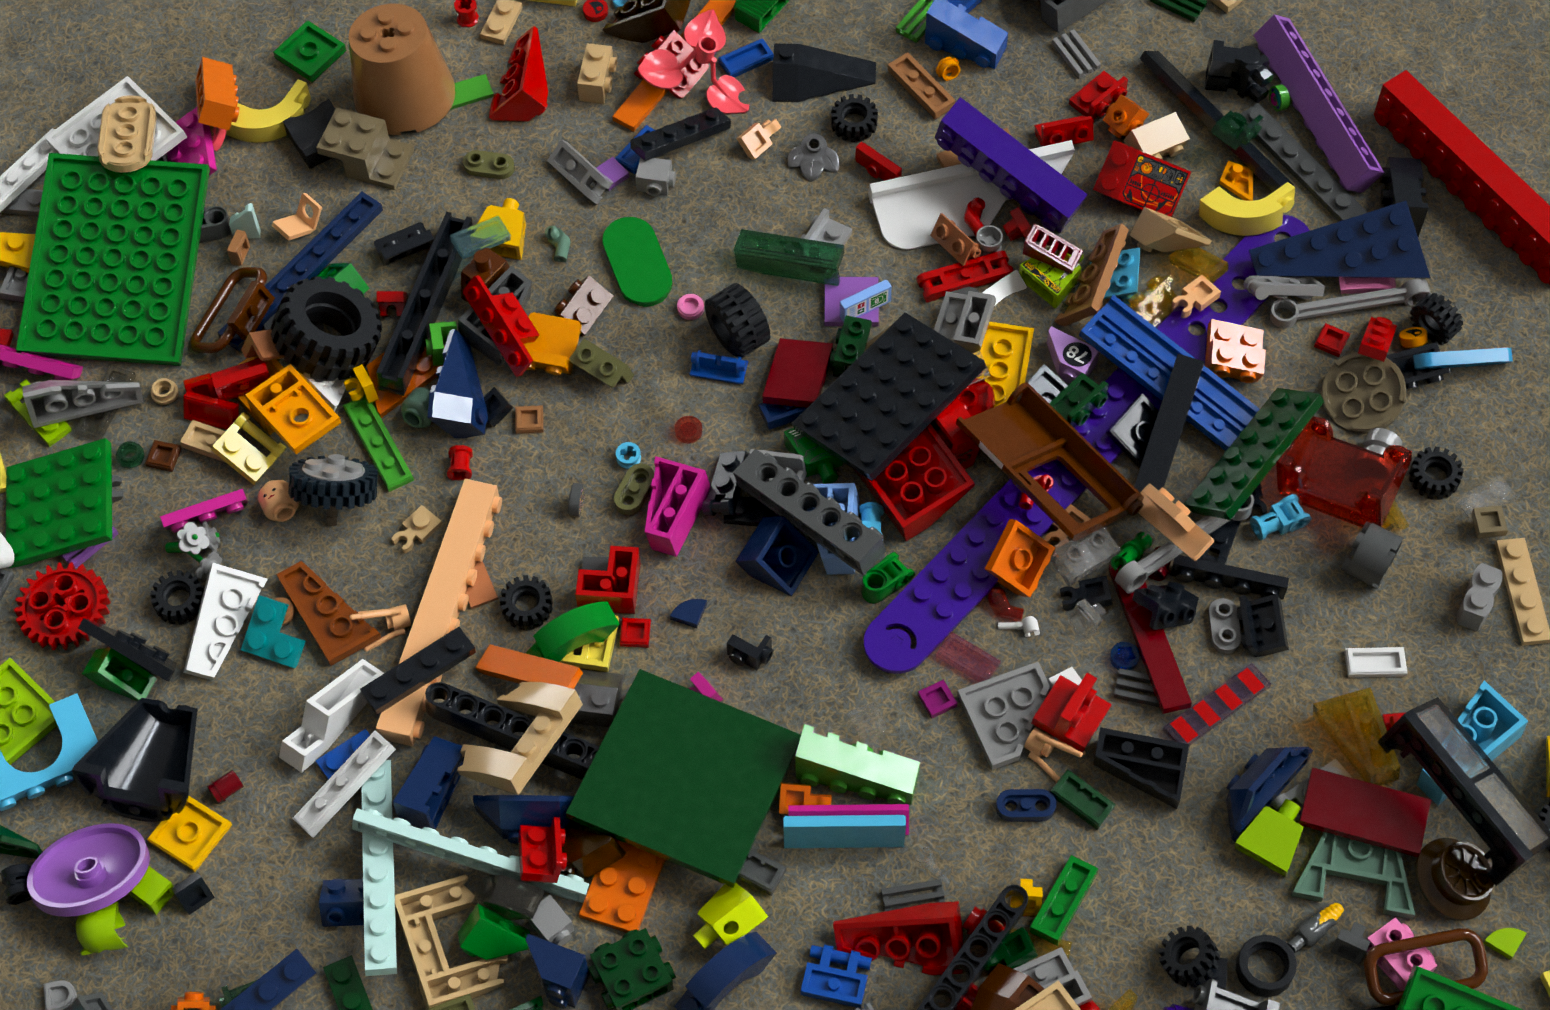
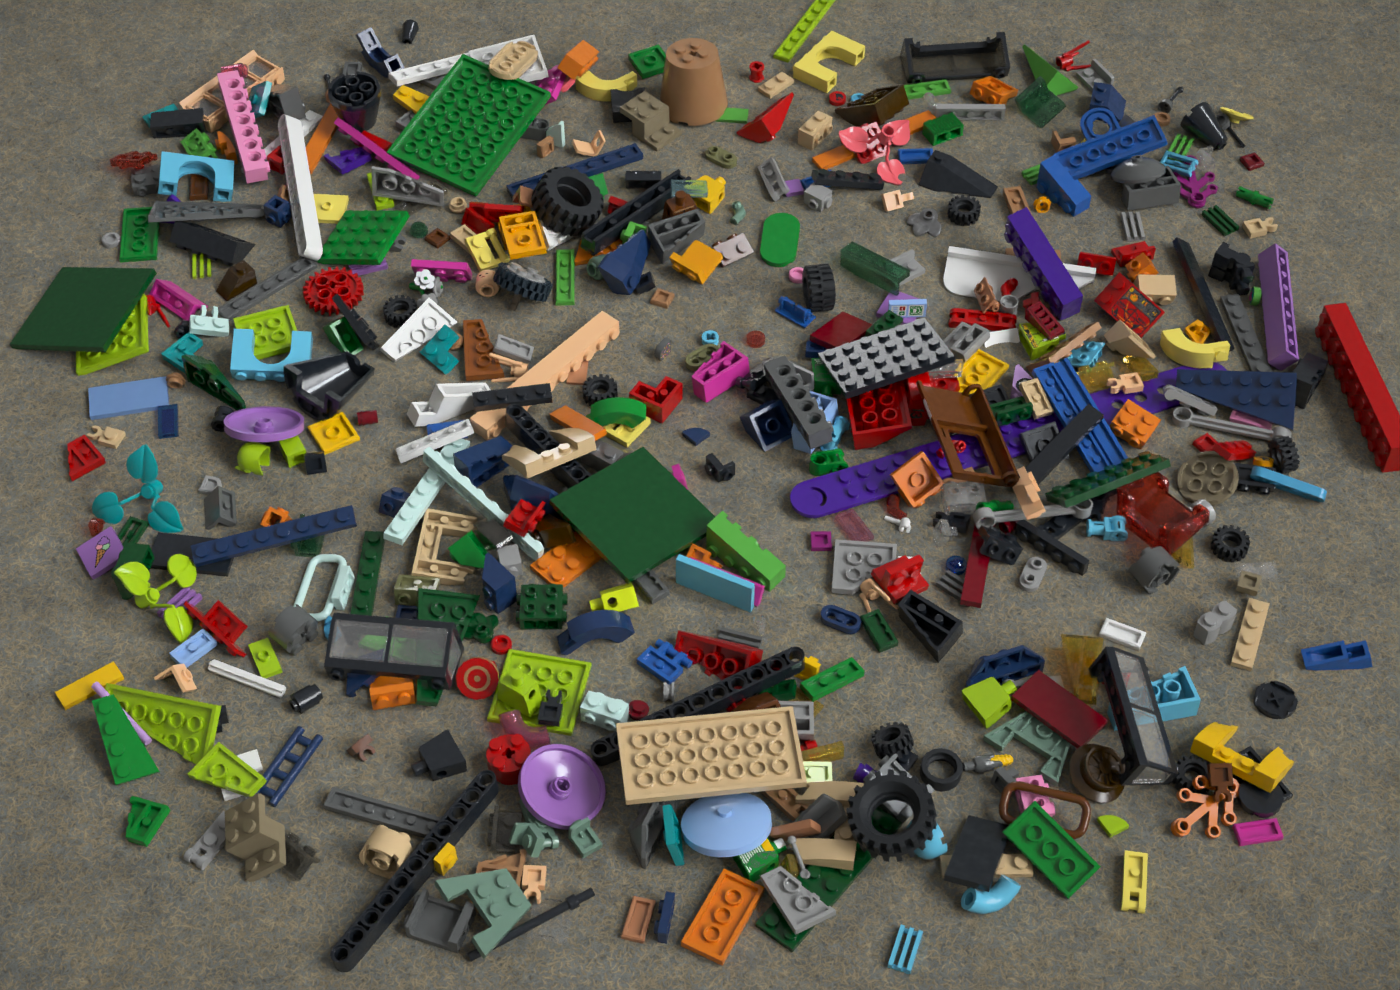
camera: 25 degrees right, 10 degrees down
(244, 318) = (525, 175): reddish brown bar -> none
(362, 384) = (571, 241): yellow tile -> none
(371, 589) = (513, 349): none -> light grey plate
(419, 526) = (560, 328): tan plate -> none
(459, 462) = (606, 304): red bush -> none
(504, 322) = (675, 235): red bracket -> none
(600, 364) = (721, 282): olive bracket -> none
(635, 632) = (656, 433): red tile -> none
(876, 163) = (961, 237): red plate -> none
(1101, 368) = (1034, 392): none -> tan plate
(1217, 706) = (1000, 616): tile -> none
(1235, 130) = (1211, 300): clear green bracket -> none
(1263, 625) = (1057, 582): black bracket -> none

